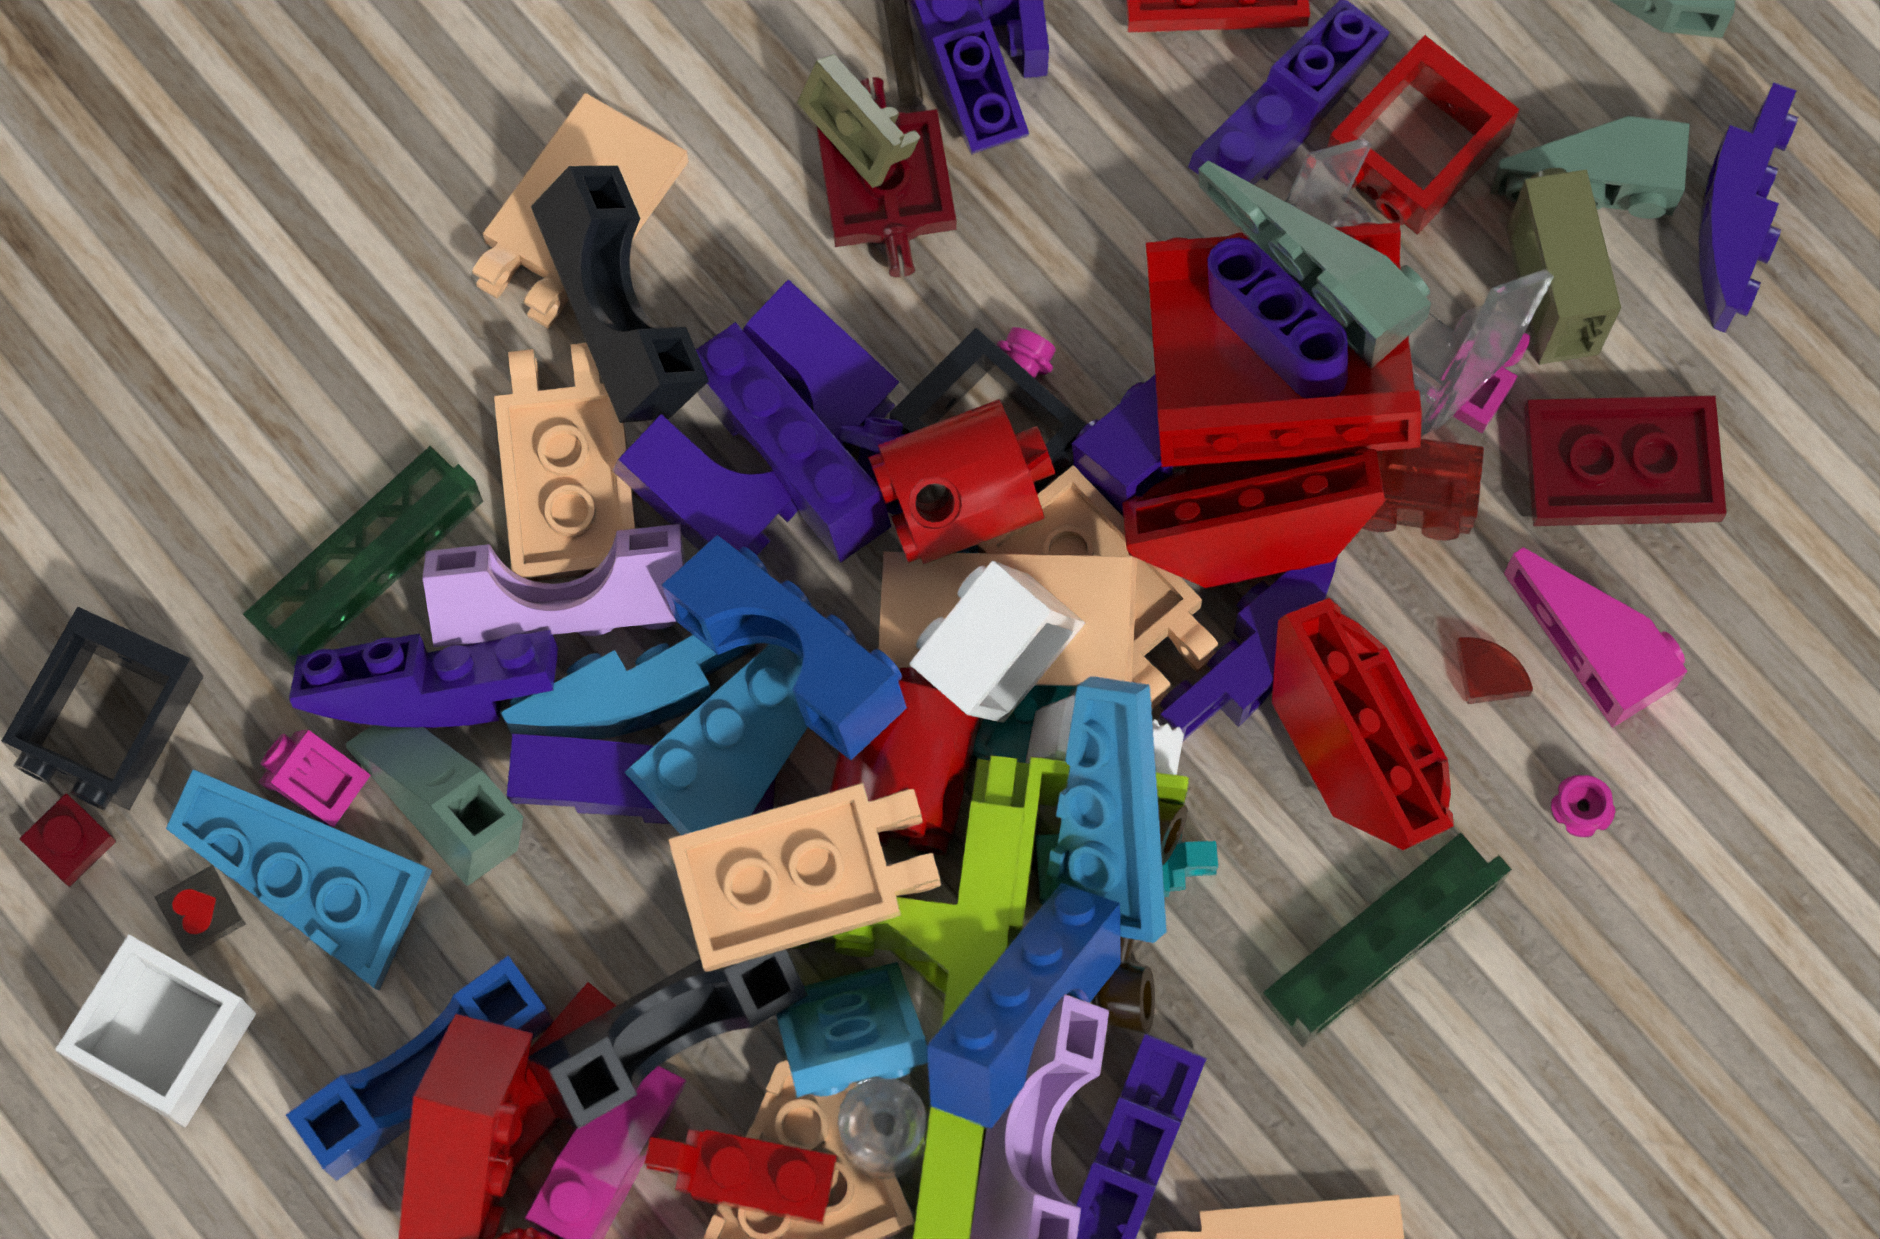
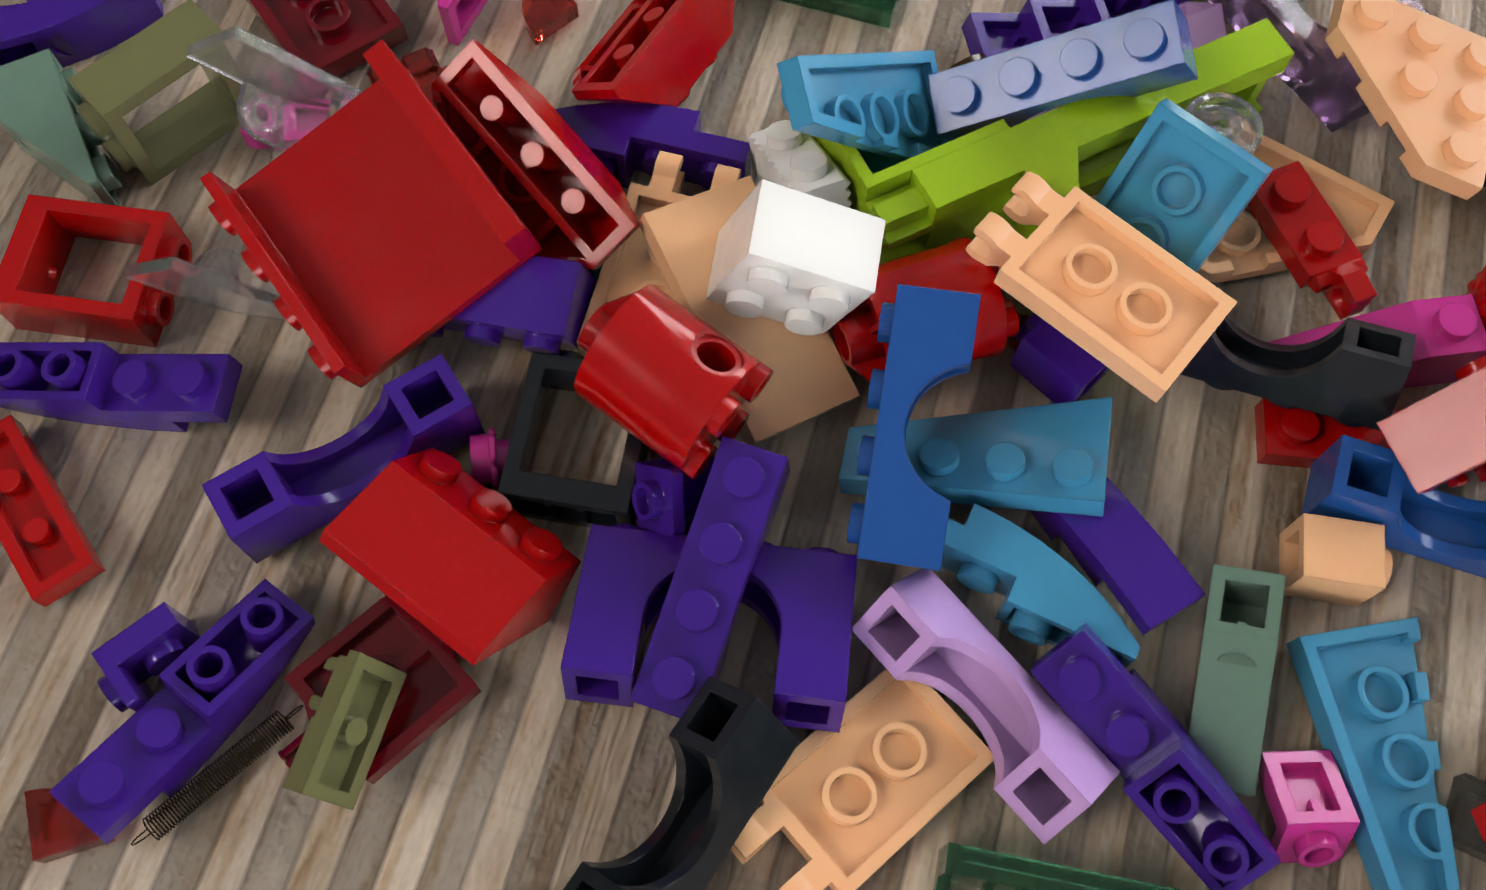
camera: 125 degrees left, 5 degrees down
(460, 950) = (1334, 559): none -> light nougat brick
(944, 264) = (452, 554): none -> red slope
(1088, 239) = (287, 496): none -> dark purple arch
(1283, 344) = (340, 196): dark purple beam -> none
(1347, 278) = (289, 167): sand green wedge -> none

